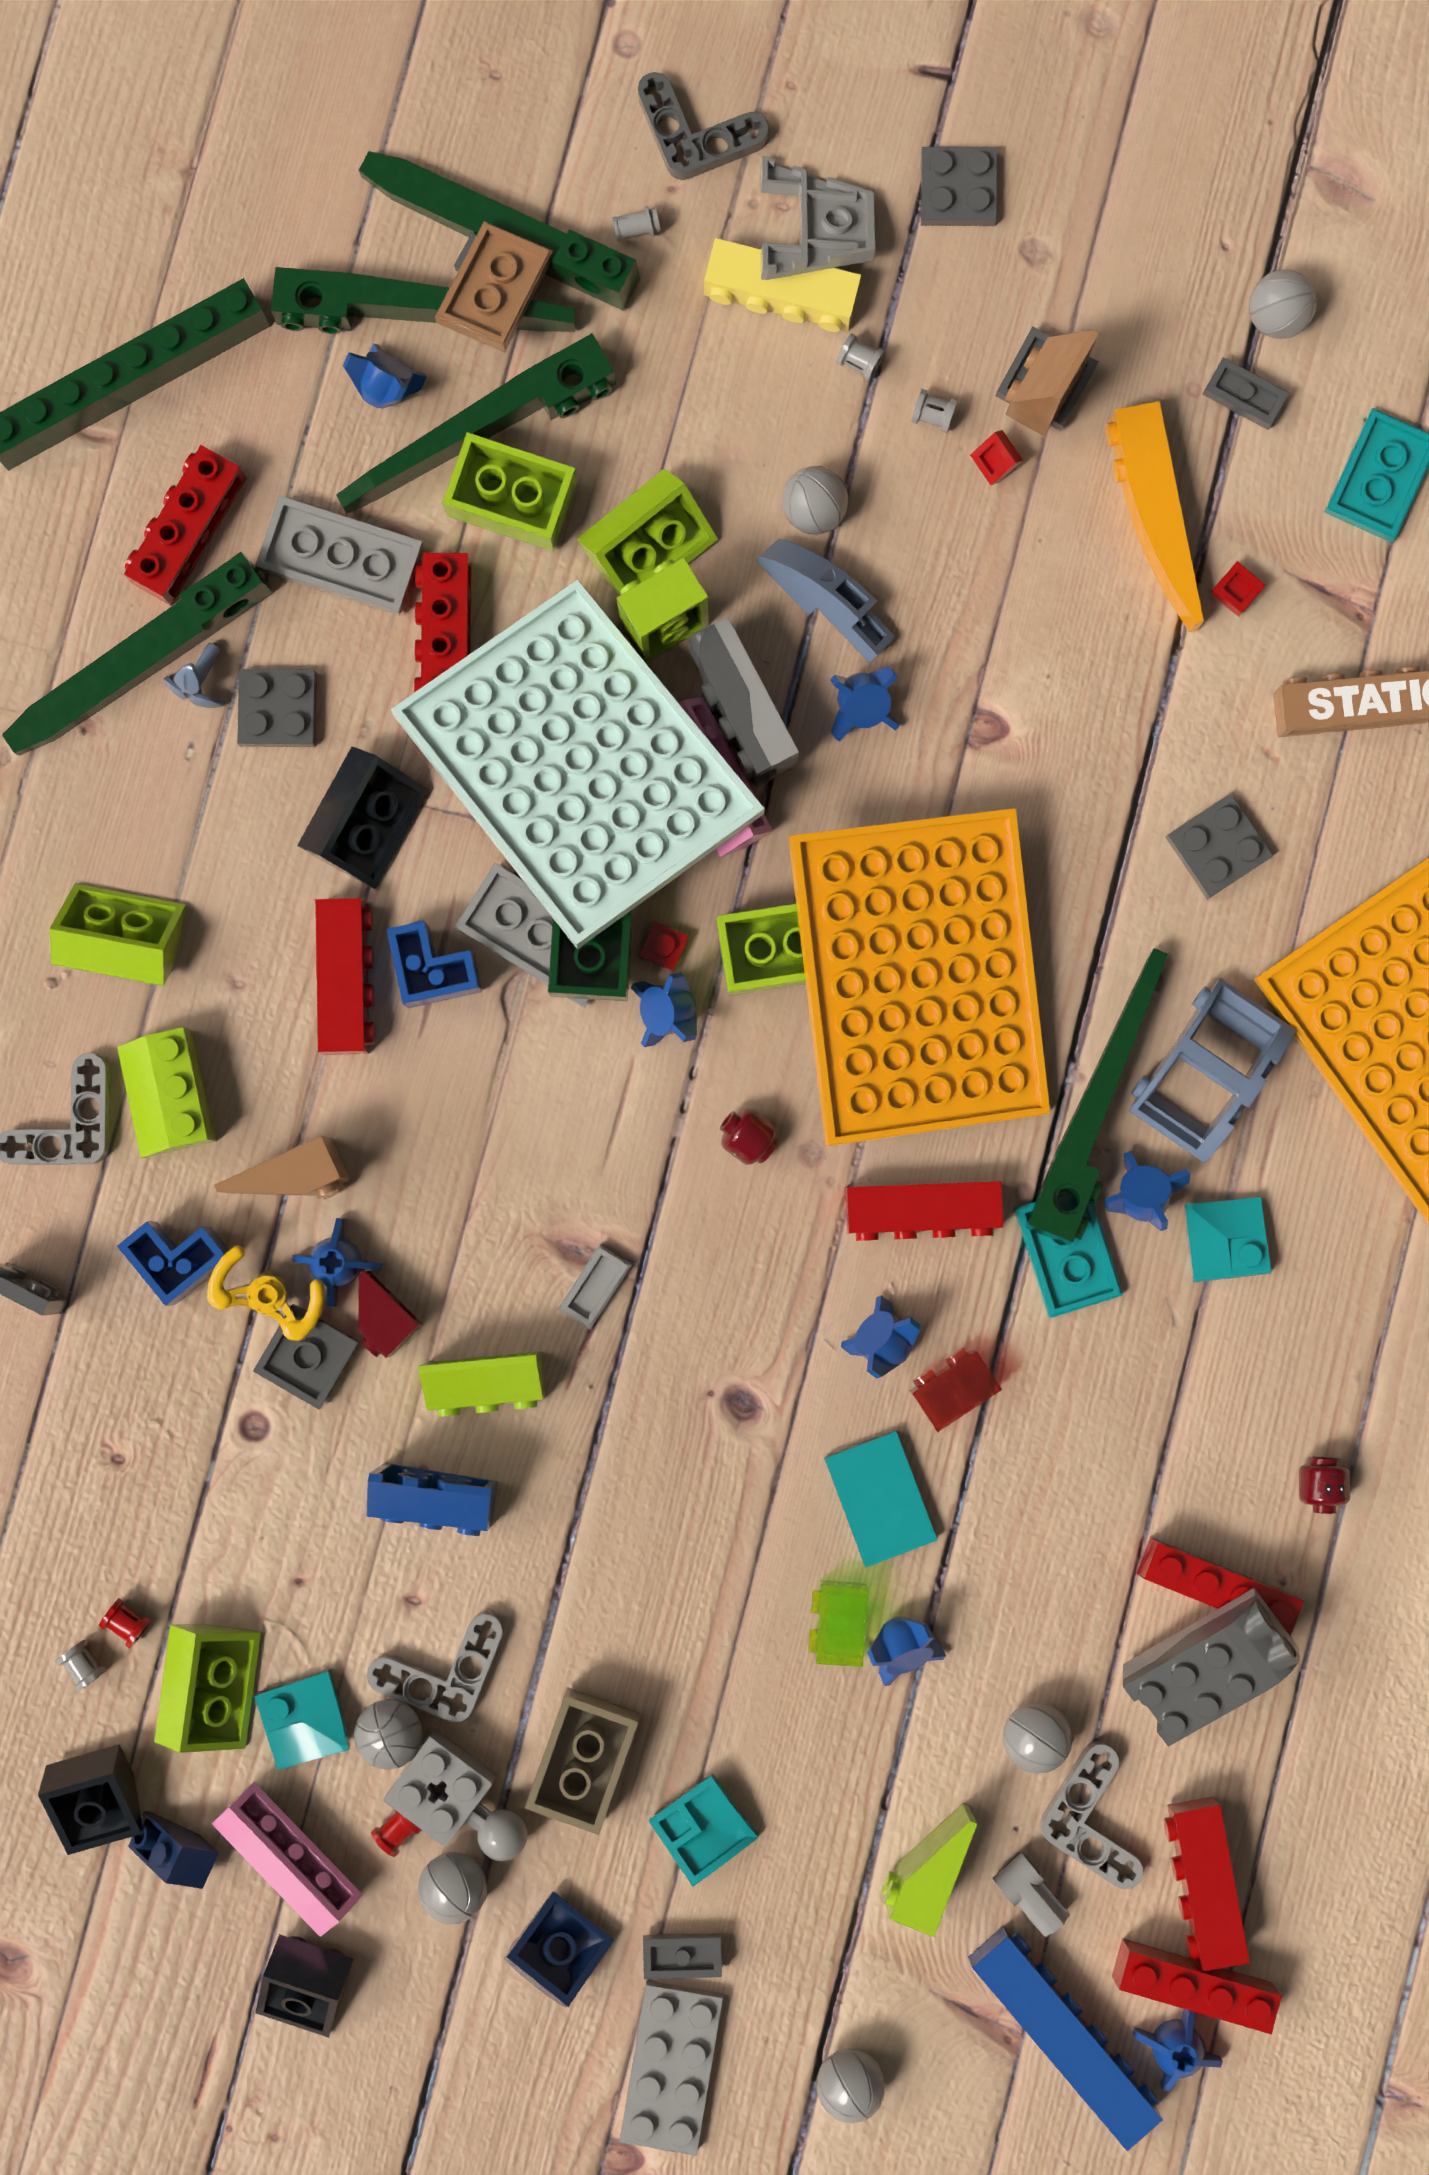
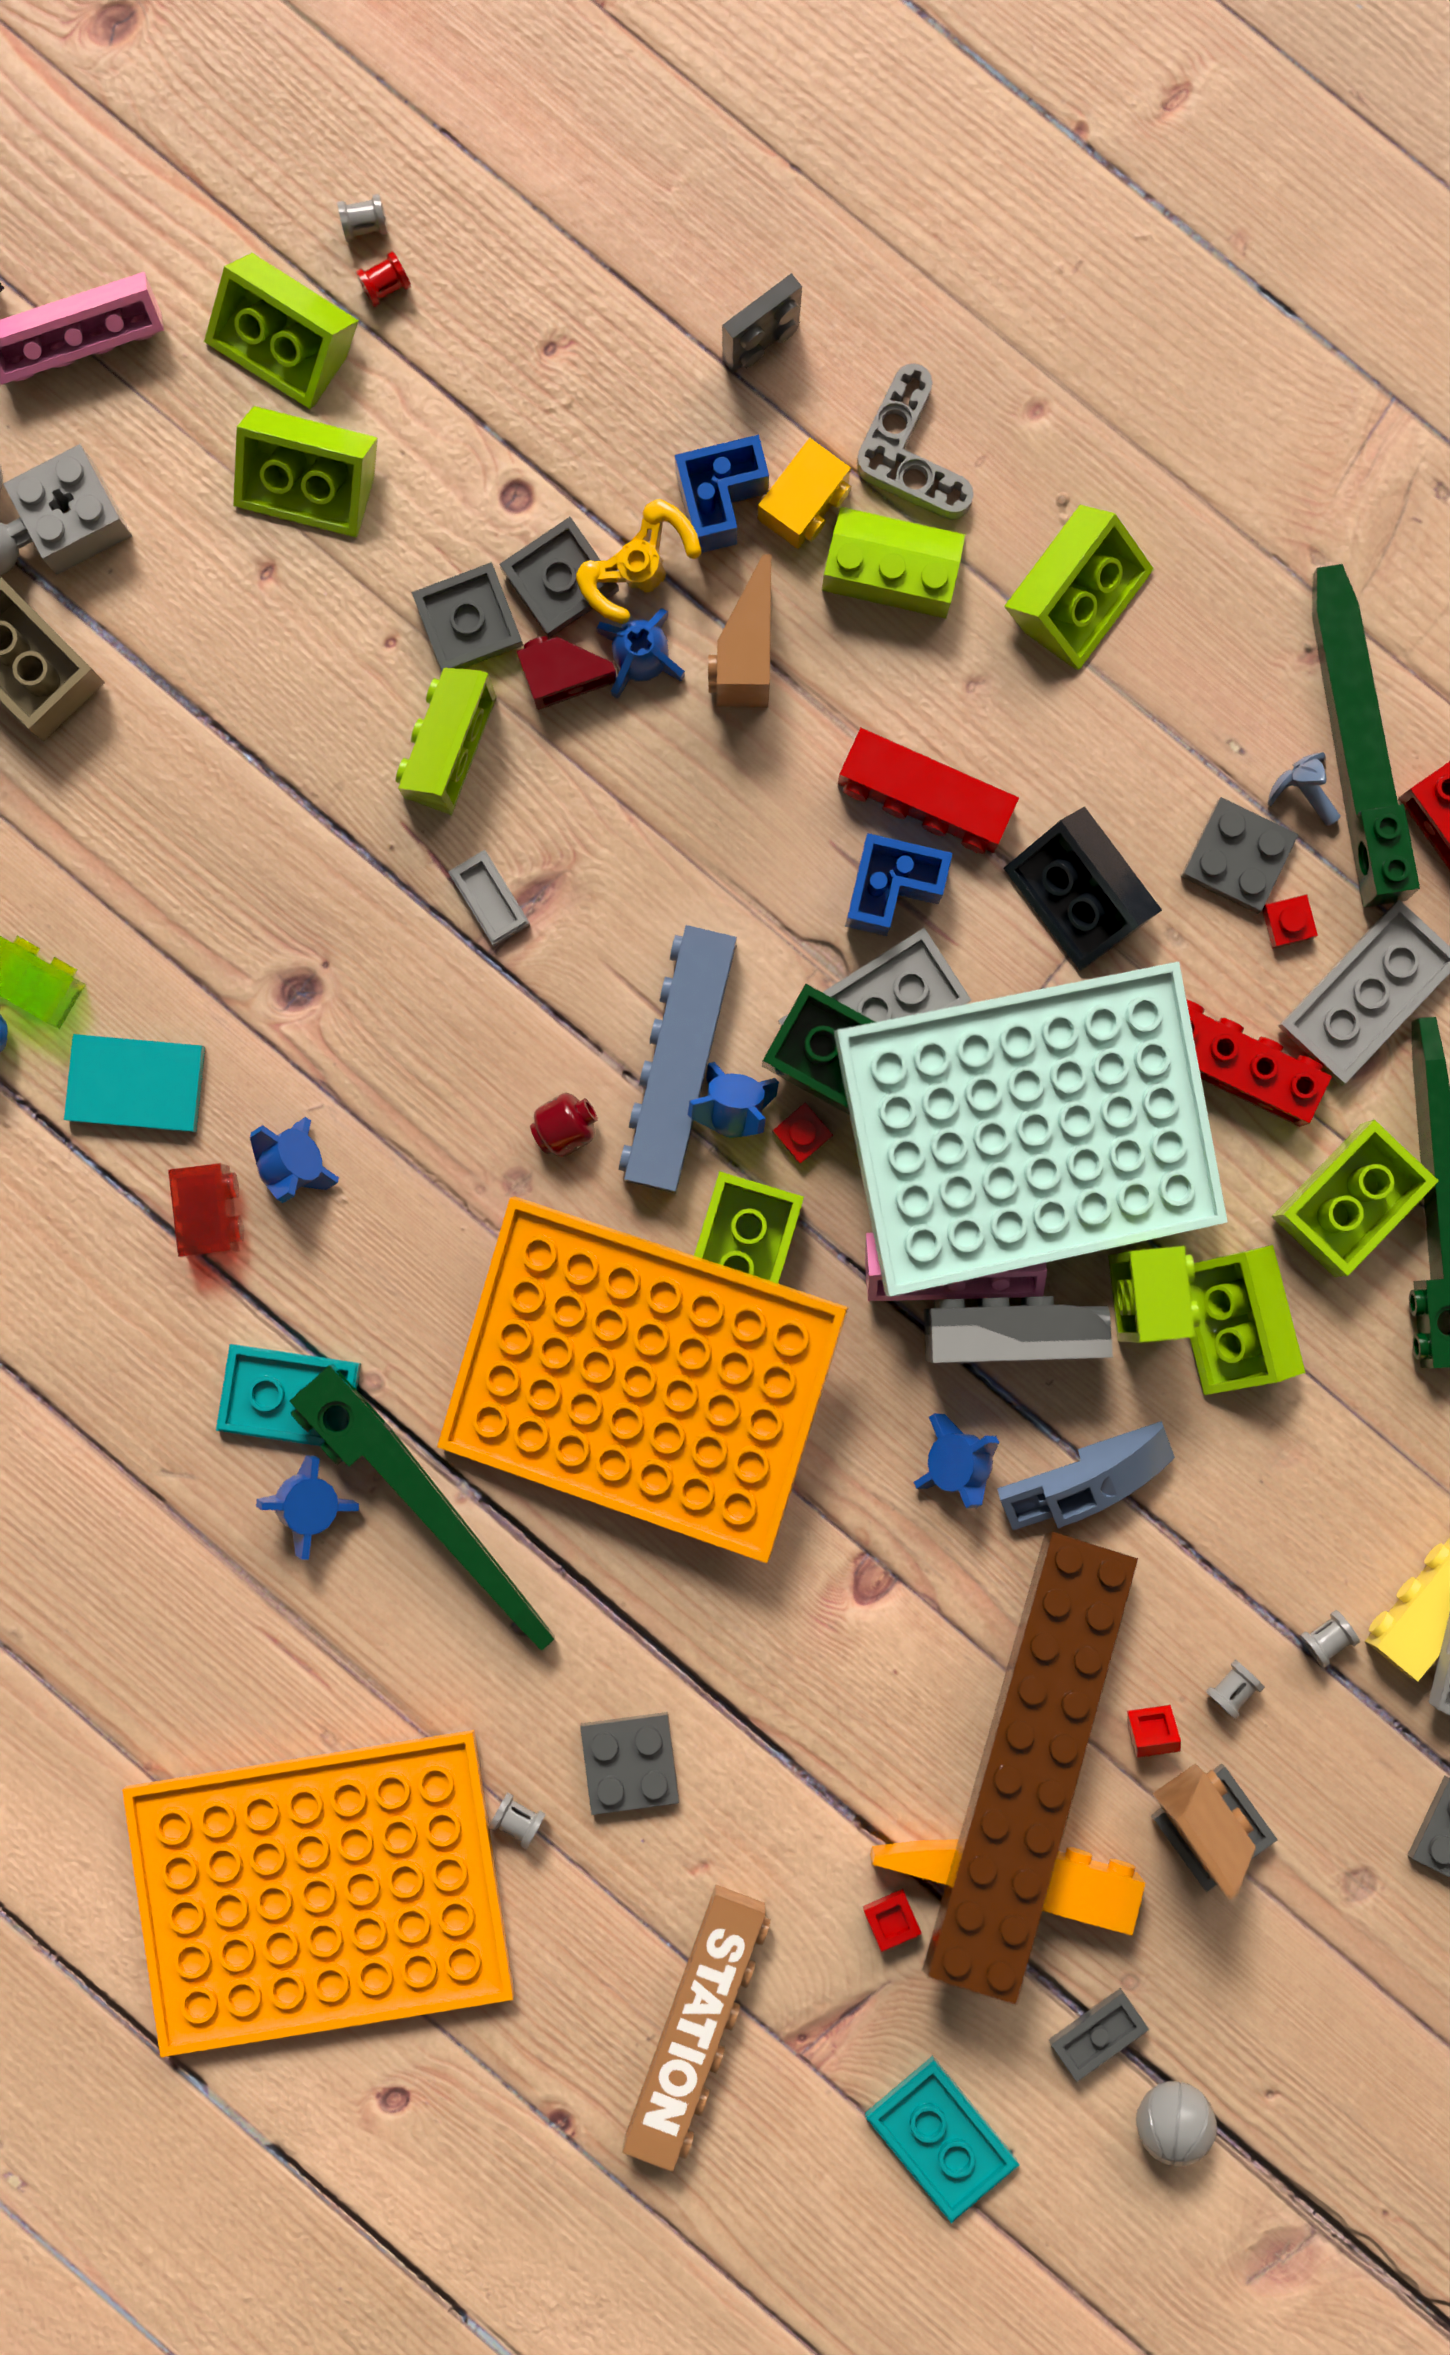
camera: 115 degrees right, 0 degrees up
(91, 1799) = (226, 167): black slope -> none
(145, 1190) = (805, 494): none -> yellow brick
(173, 1851) = (136, 223): dark blue slope -> none
(303, 1720) = (201, 408): teal plate -> none
(311, 644) = (1289, 921): none -> red plate
(316, 1609) = (303, 470): none -> lime slope
(375, 1414) = (467, 618): none -> dark grey plate
(388, 1734) = (144, 482): light grey piece -> none
(394, 1834) = (45, 440): red bush -> none
(431, 1498) = (356, 630): blue wedge -> none
(456, 1681) = (163, 572): light grey beam -> none
(651, 1070) = (679, 1059): none -> sand blue brick
(815, 500) = (1196, 1514): light grey piece -> none
(924, 1208) = (403, 1268): red brick -> none
(1071, 535) = (1029, 1768): none -> reddish brown brick
(1227, 1239) = (219, 1567): teal plate -> none
(1248, 1021) = (434, 1701): sand blue window -> none
(1306, 911) = (517, 1820): none -> light grey bush

